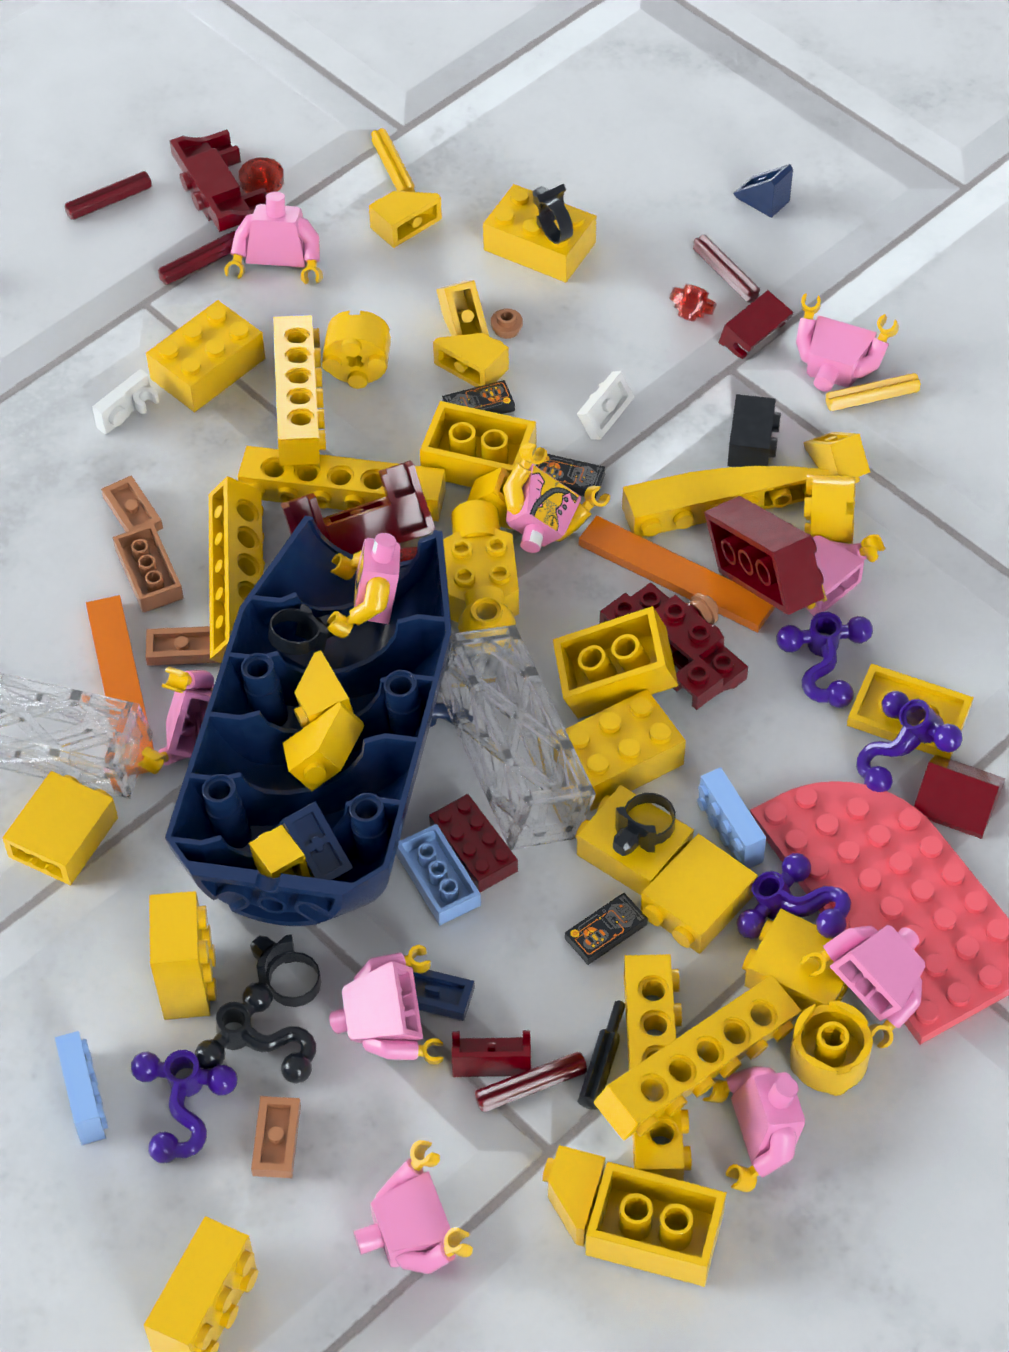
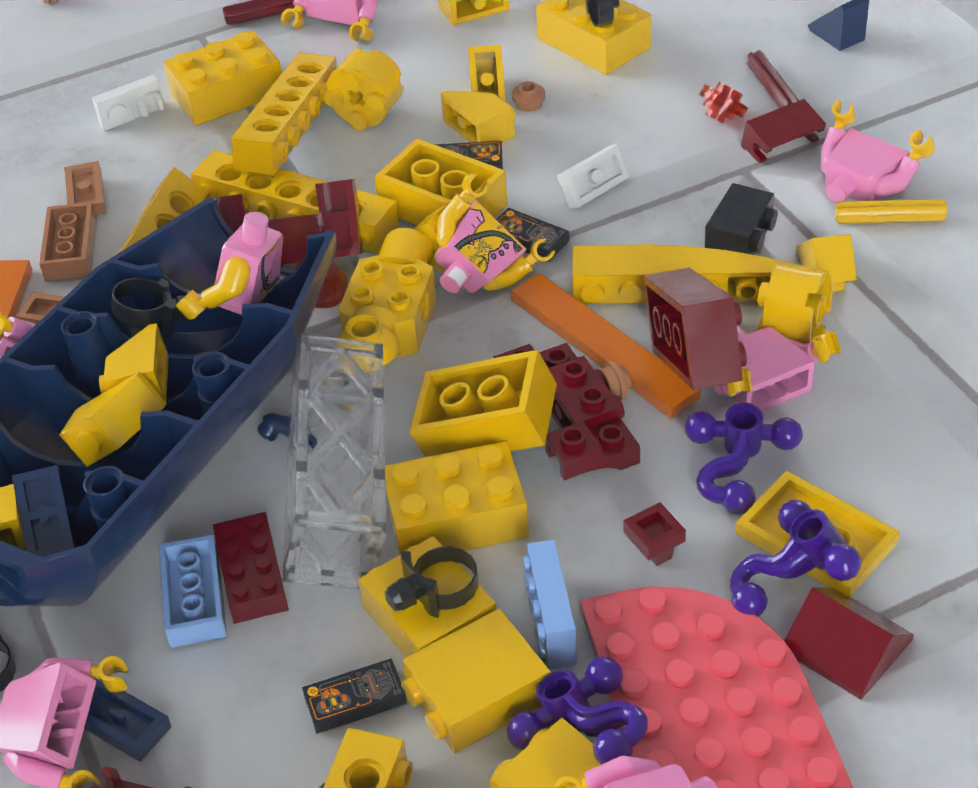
camera: 20 degrees right, 10 degrees down
(788, 740) = (655, 533): none -> dark red tile

